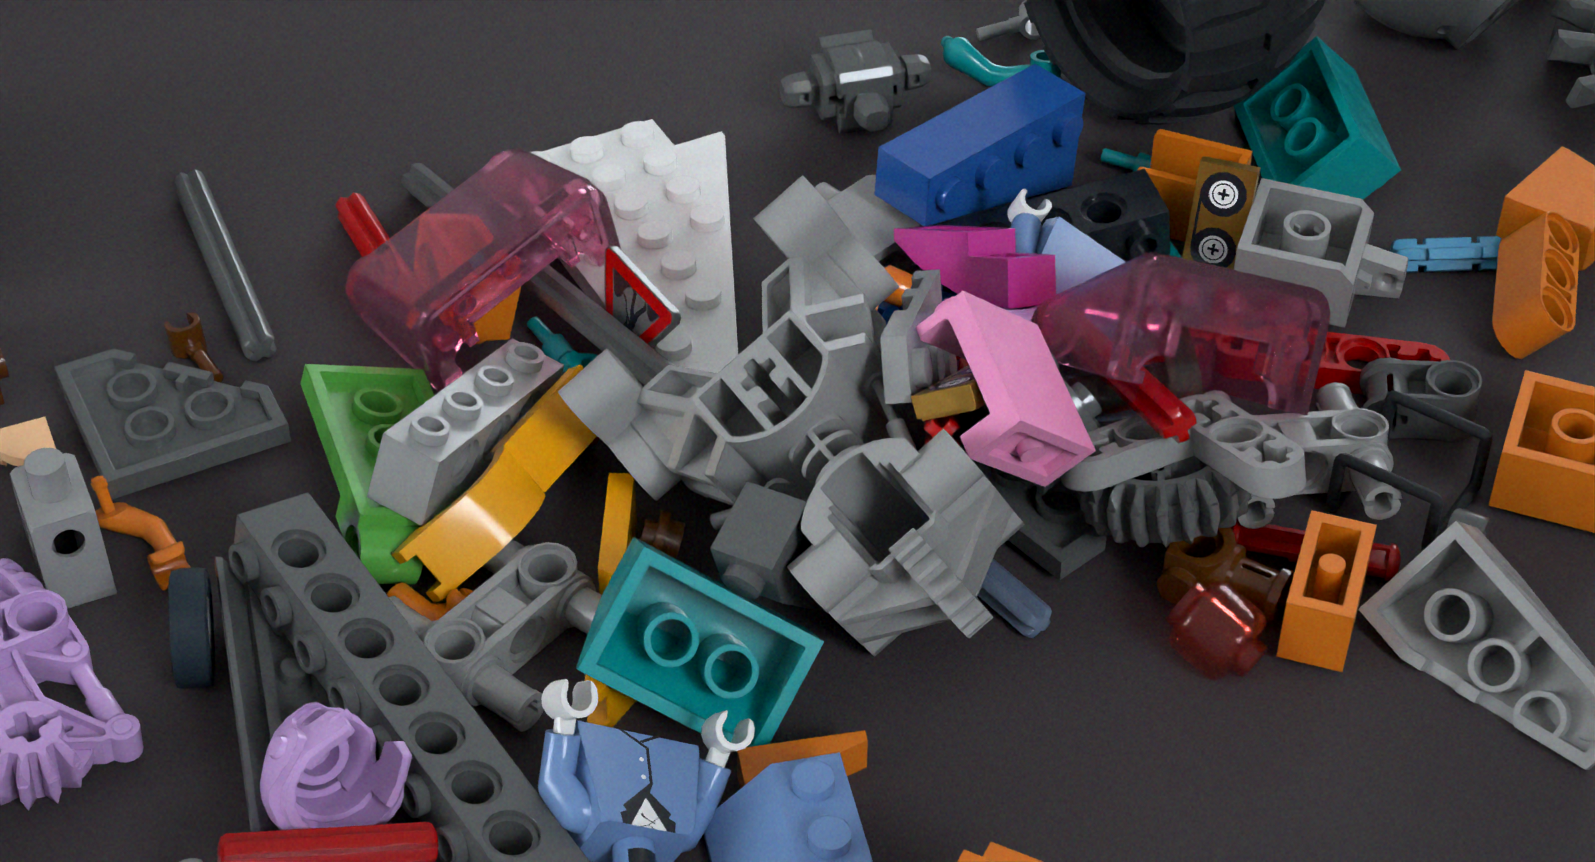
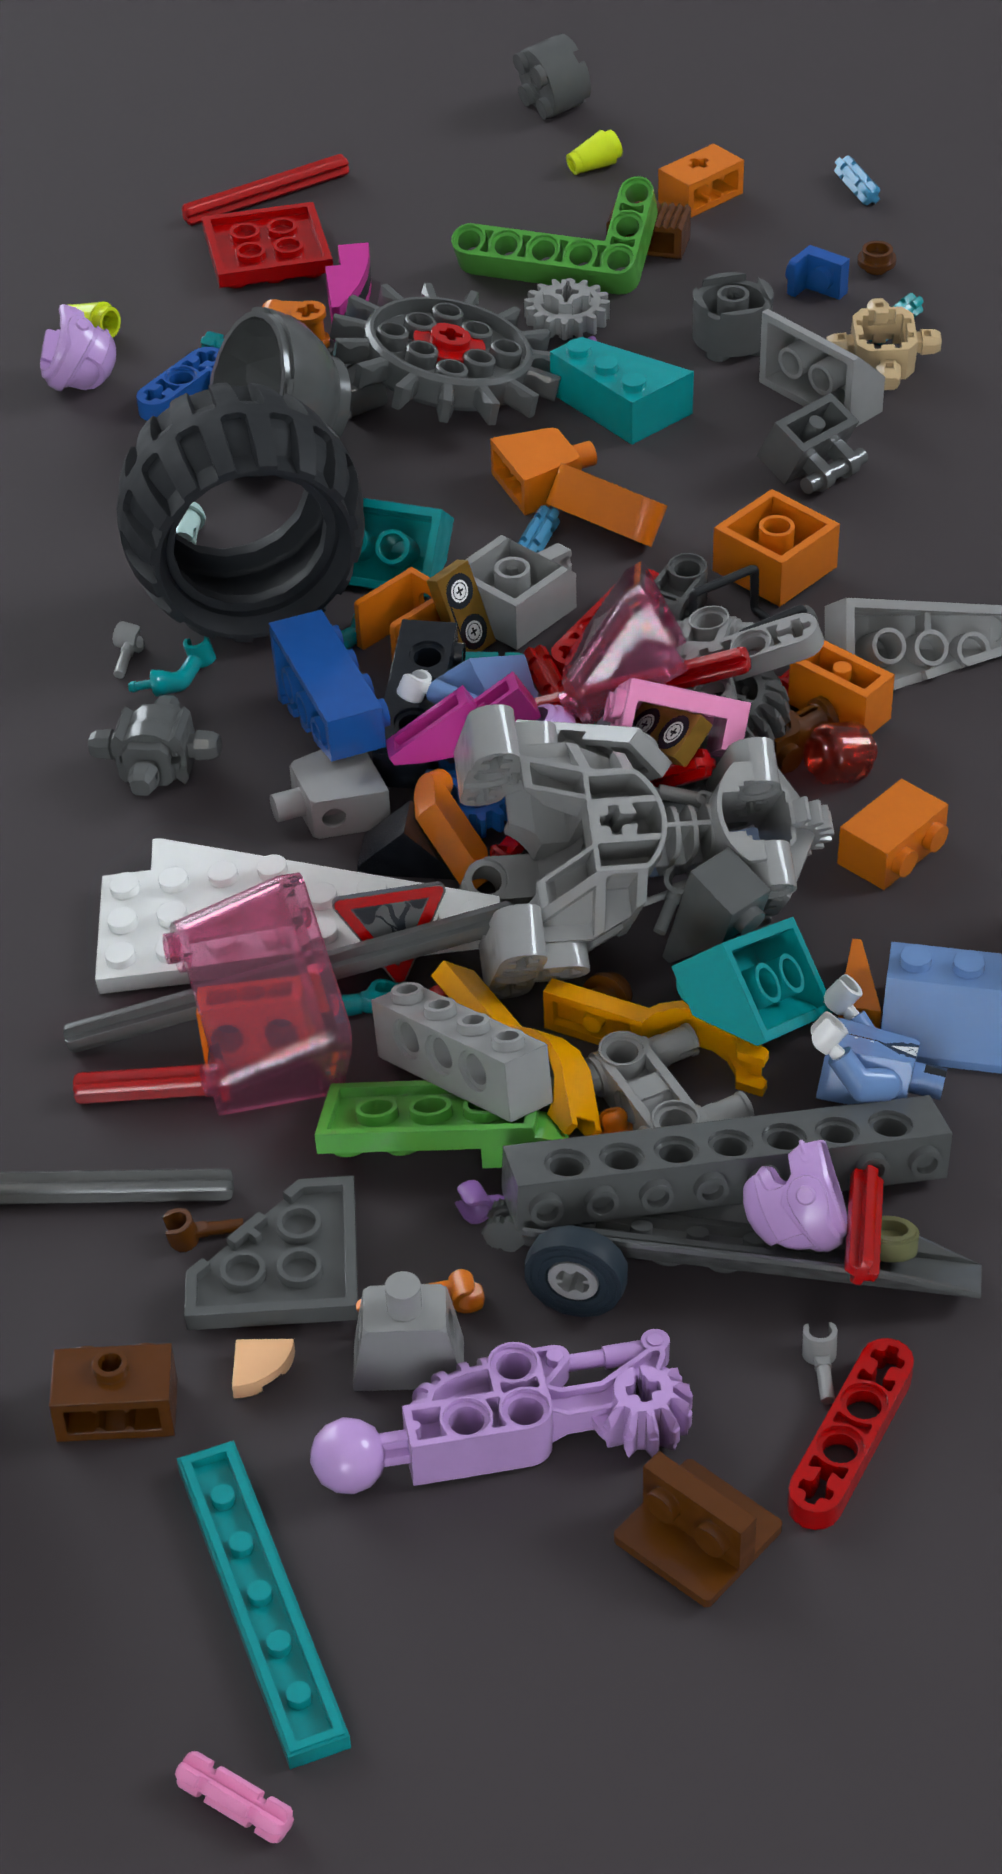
camera: 65 degrees left, 0 degrees up
(1093, 723) = (893, 834): none -> orange brick

